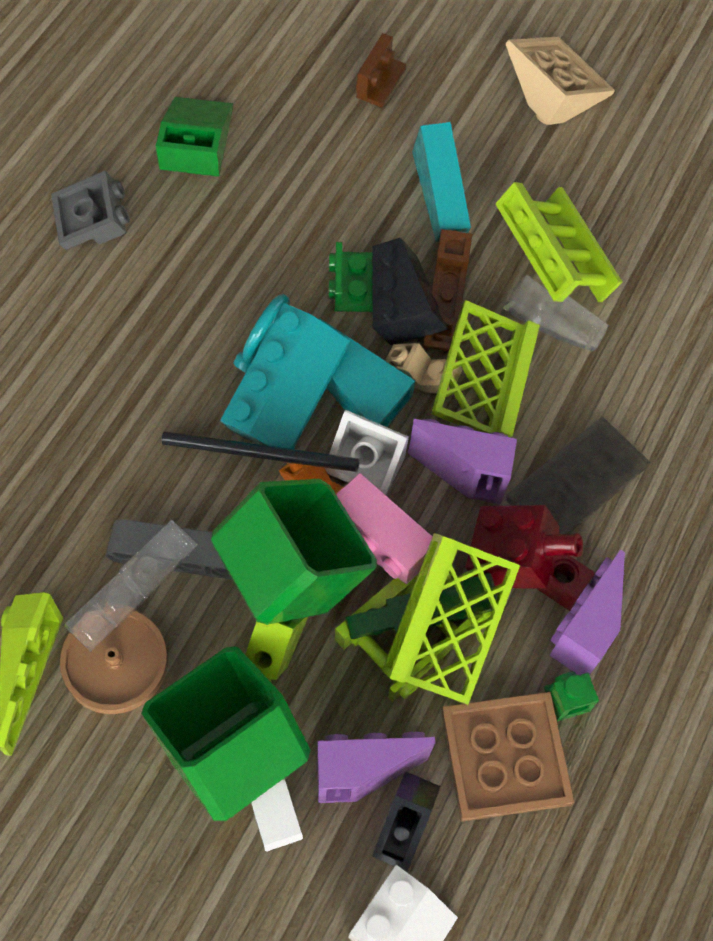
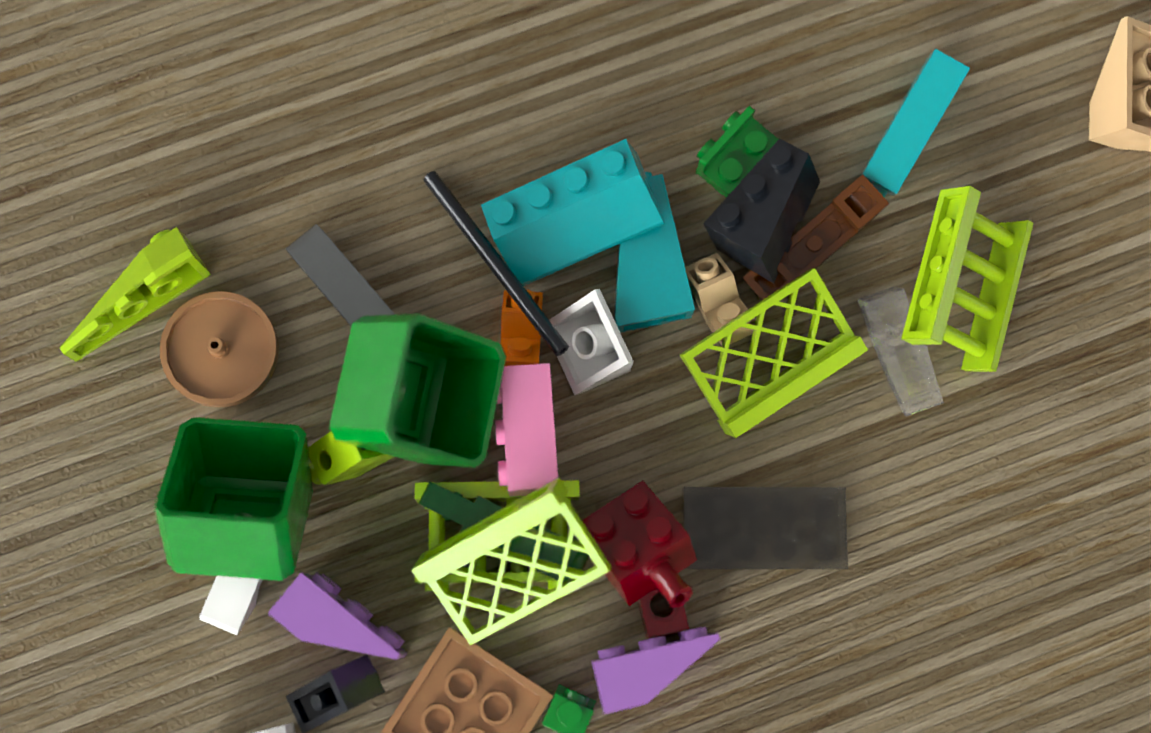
camera: 40 degrees right, 15 degrees up
(131, 586) = (274, 299): clear slope -> none
(259, 332) = (584, 147): teal piece -> none
(466, 459) = (675, 433): medium lavender slope -> none

